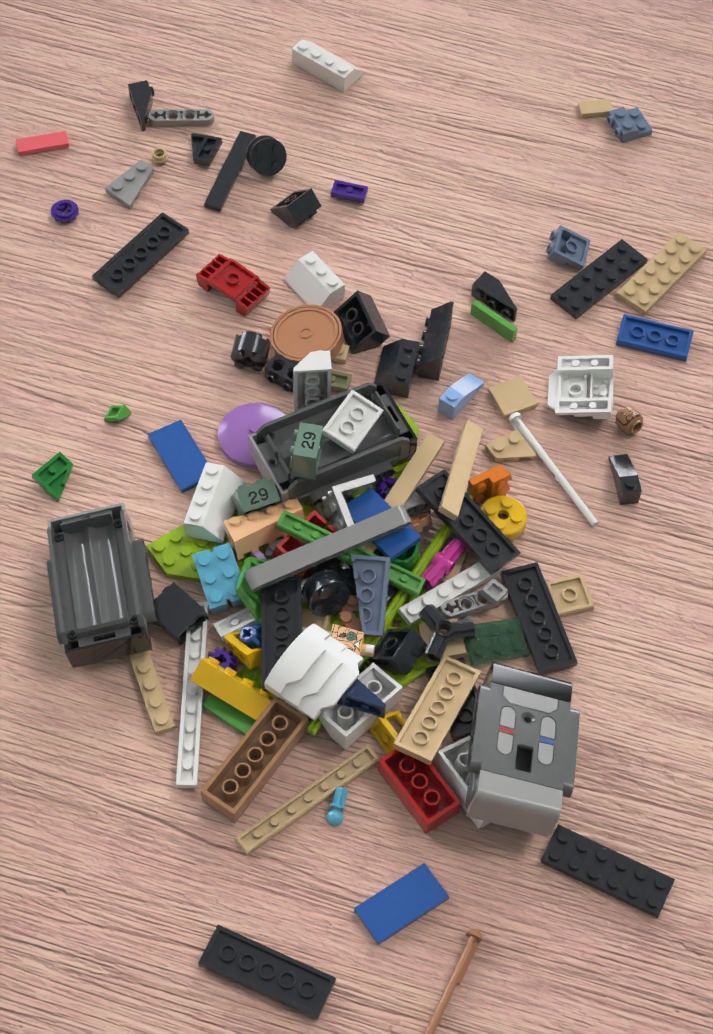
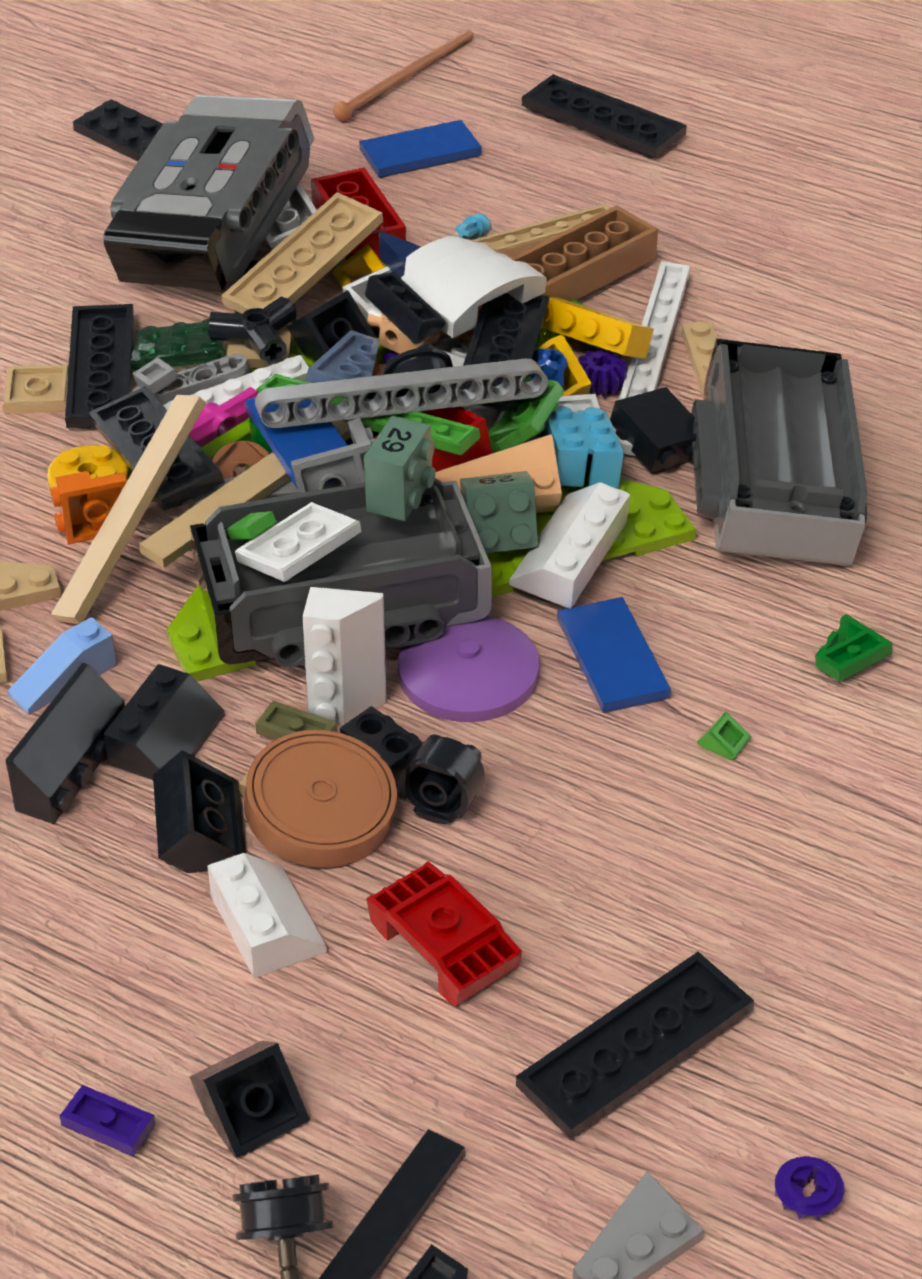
camera: 165 degrees left, 15 degrees down
(349, 636) = (403, 306): none -> black slope
(380, 427) = (251, 526): none -> bright green tile

